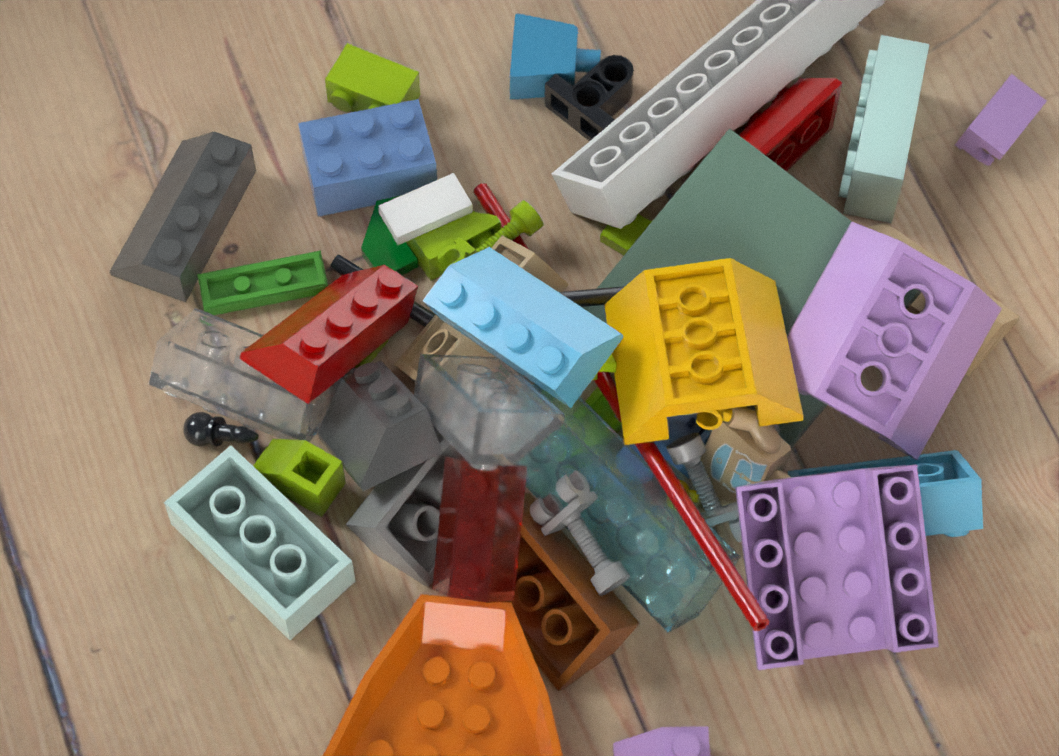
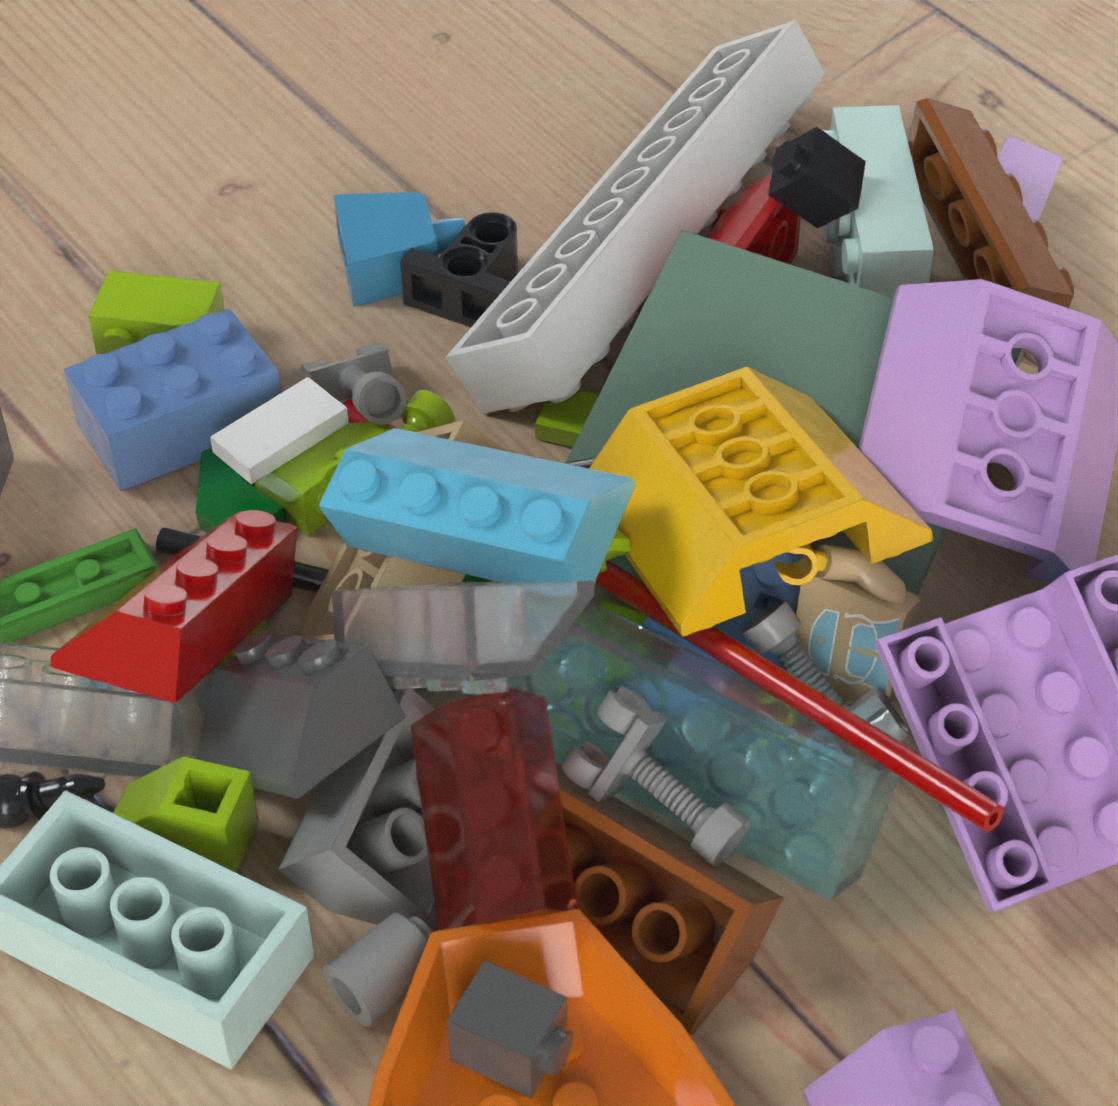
camera: 15 degrees left, 15 degrees down
(389, 601) = (377, 968): none -> light grey brick
(448, 667) = (509, 1029): none -> dark grey brick
(495, 197) = (364, 378): none -> light grey bar
(842, 100) = (816, 177): none -> black brick
(960, 153) = (980, 205): none -> dark orange slope

